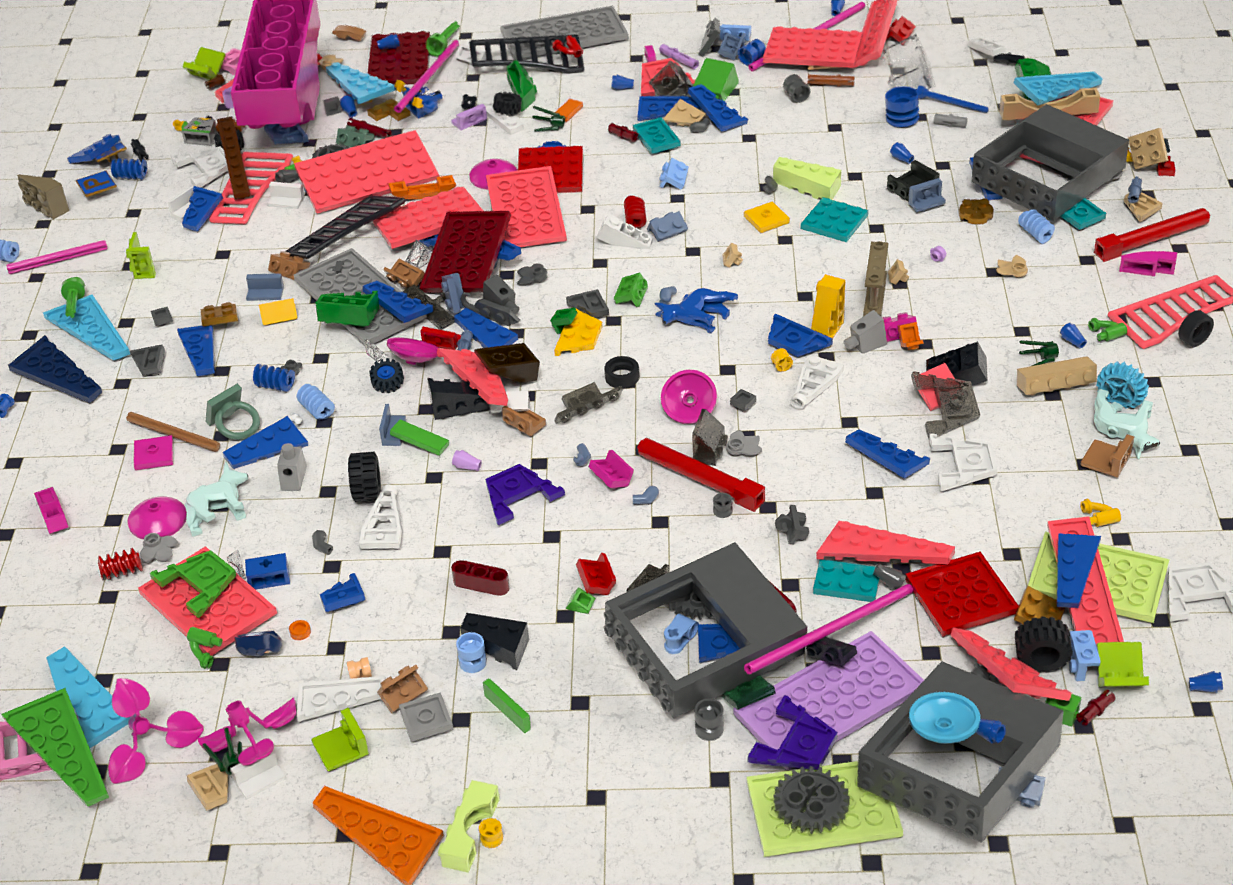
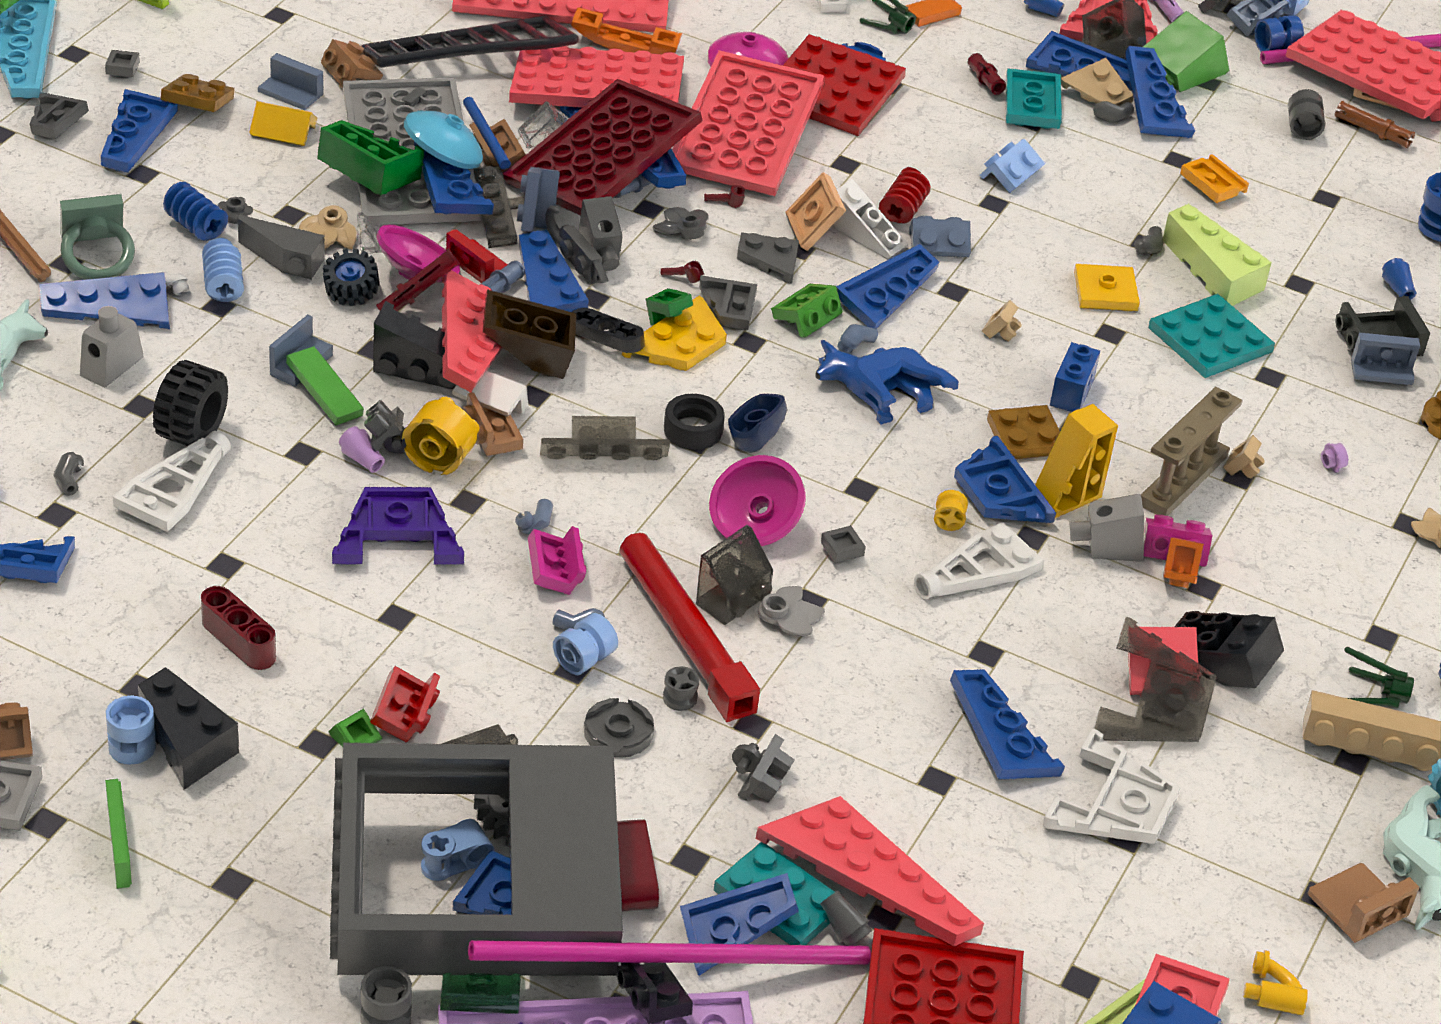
camera: 20 degrees right, 0 degrees up
(335, 375) = (284, 247): none -> dark grey slope
(351, 357) = (334, 229): none -> tan plate
(381, 280) = (444, 138): none -> medium azure dish
(382, 263) = (486, 133): none -> blue bar
(418, 382) = (421, 281): none -> dark red pin
(472, 443) = (386, 427): none -> dark grey hips
(505, 435) = (440, 436): none -> yellow brick
(547, 250) = (734, 198): none -> dark red hand
(552, 344) = (618, 334): none -> black beam
(557, 295) = (692, 270): none -> dark red hand
(588, 271) = (769, 253): none -> dark grey wing
(598, 239) = (815, 211): none -> light nougat tile
(654, 357) = (757, 421): none -> dark blue piece
(660, 263) = (887, 286): none -> blue wing
(661, 505) = (585, 644): none -> light blue wheel
(706, 538) = (620, 725): none -> dark grey tile
(776, 139) = (1214, 178): none -> light orange plate
(785, 304) = (1025, 430): none -> pearl gold plate
(789, 268) = (1075, 377): none -> blue brick
(839, 597) = (739, 914): none -> blue wing

